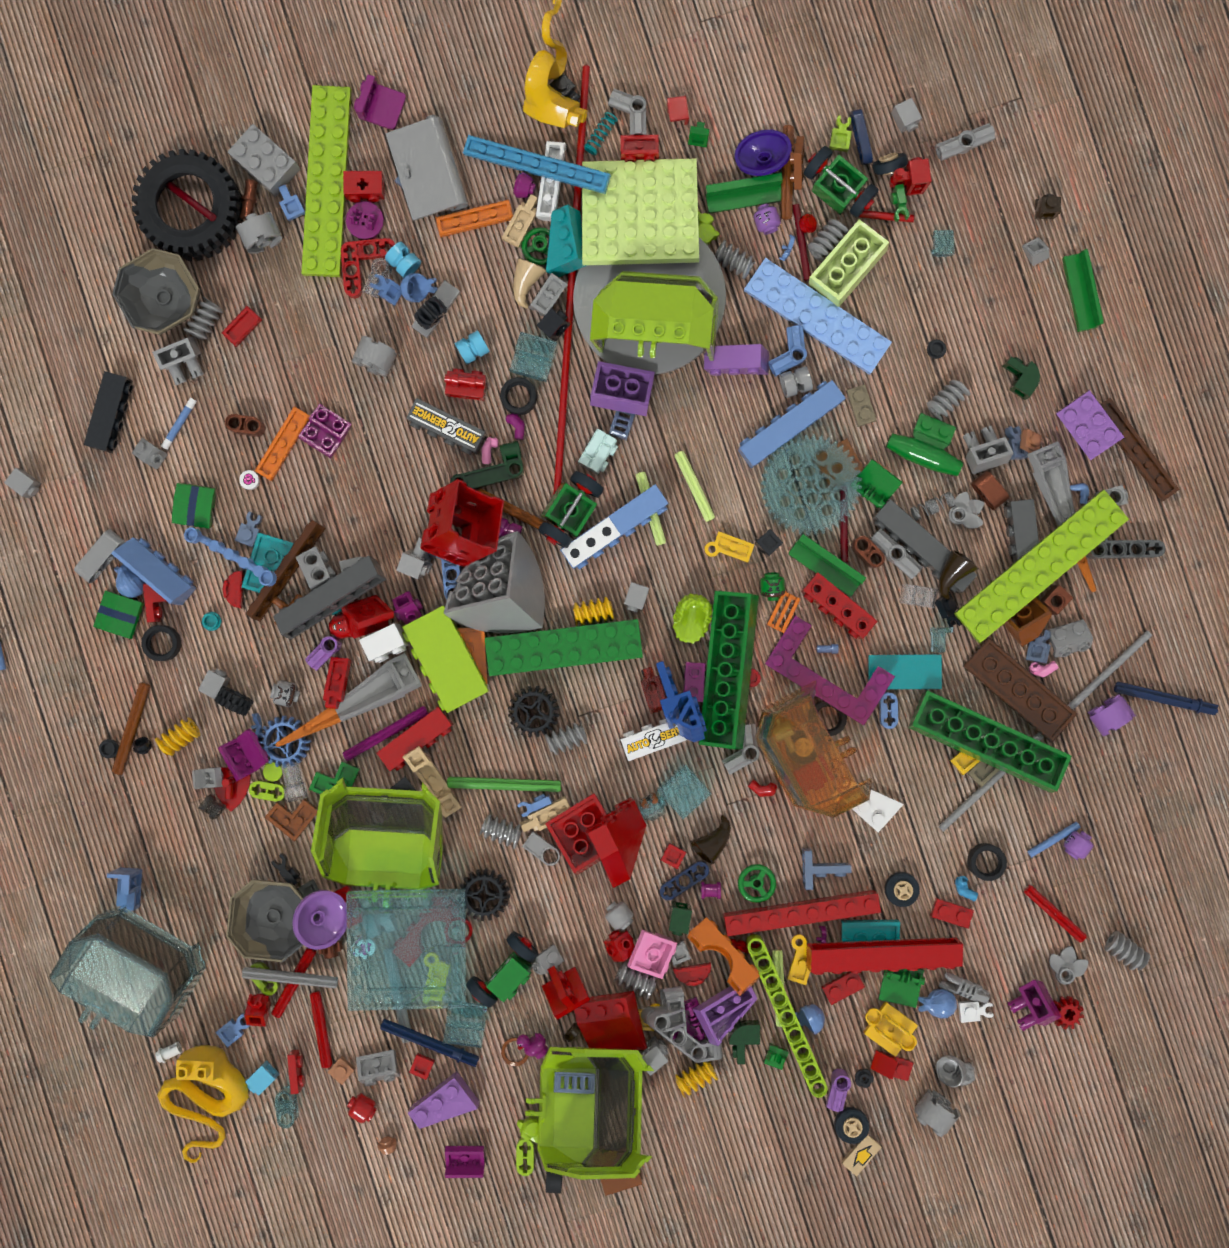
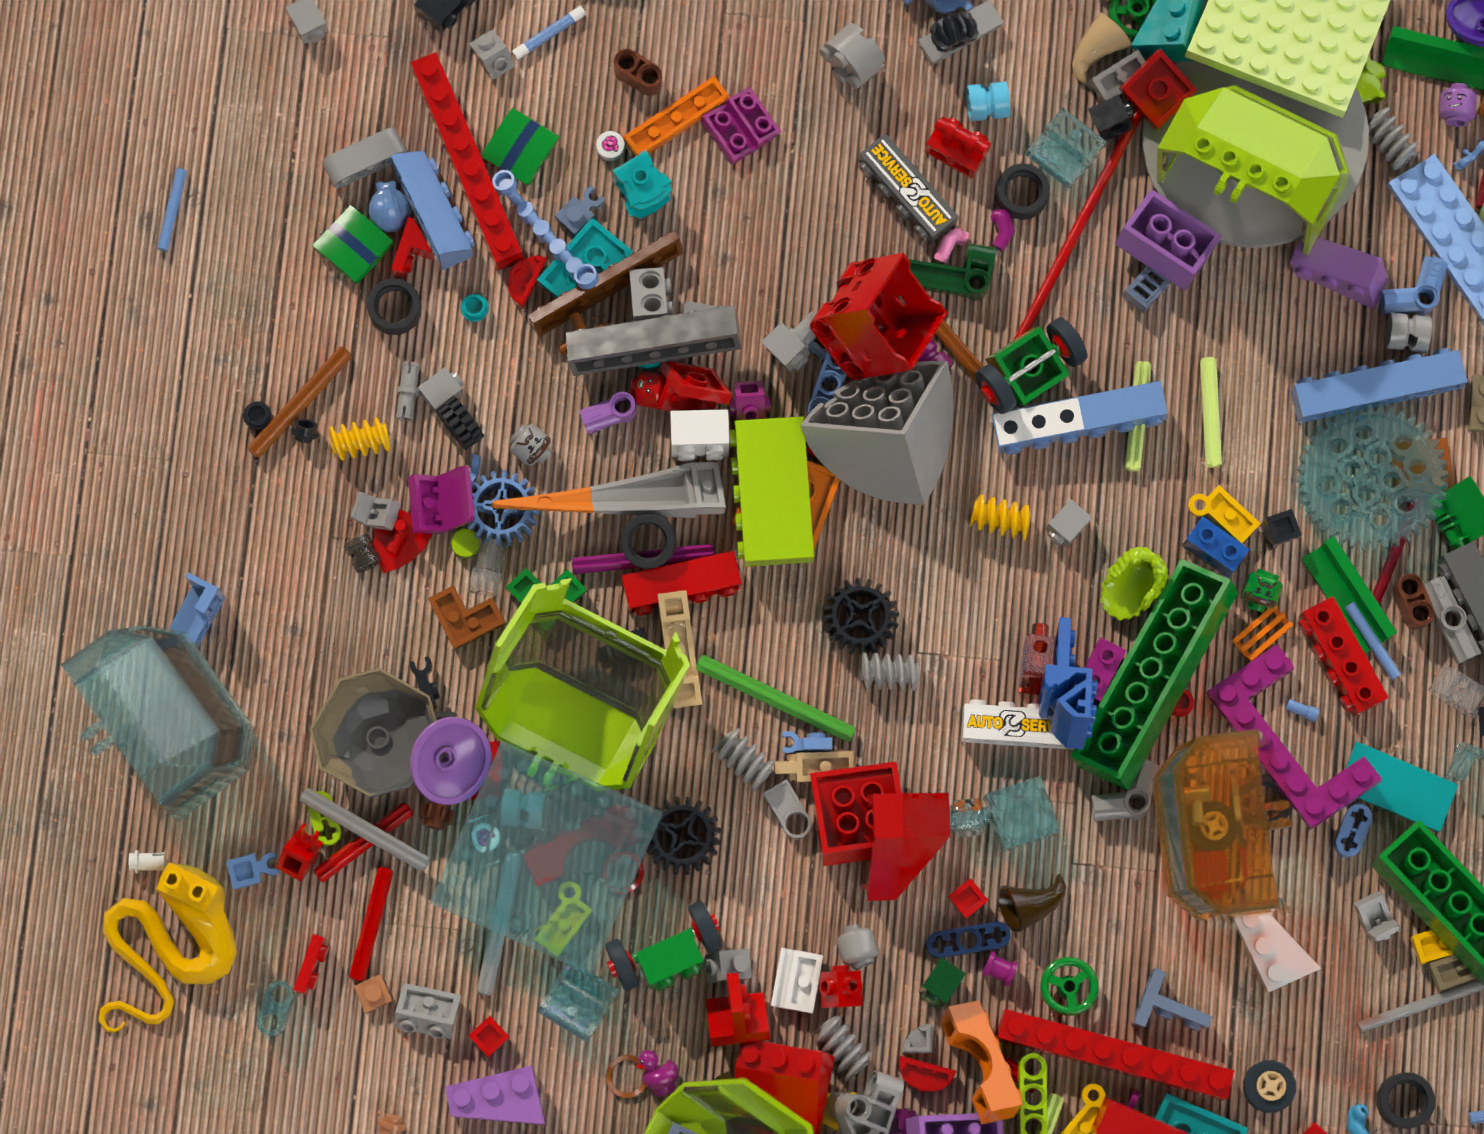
camera: 15 degrees right, 10 degrees down
(163, 530) = (466, 161): none -> red brick
(193, 693) = (407, 391): none -> light grey pin
(262, 1078) = (259, 953): medium azure brick -> none
(268, 786) = (443, 571): lime beam -> none
(280, 499) = (642, 186): none -> teal piece
(336, 682) = (609, 458): red hinge -> none
(361, 1108) = (379, 1057): red head -> none
(382, 739) = (632, 526): none -> black tyre
(429, 1042) = (540, 1034): dark blue axle -> none
(563, 647) = (940, 548): green brick -> none
(574, 293) = (1157, 89): none -> red plate
(591, 951) = (796, 980): none -> white plate
(598, 451) = (1099, 309): light aqua brick -> none
(652, 954) = (882, 1017): bright pink plate -> none
(733, 571) = (1215, 547): none -> blue brick
(763, 791) = (1130, 864): red arm -> none
(852, 587) = (1372, 641): none -> medium blue bar
(925, 759) = (1376, 917): none -> light grey bracket

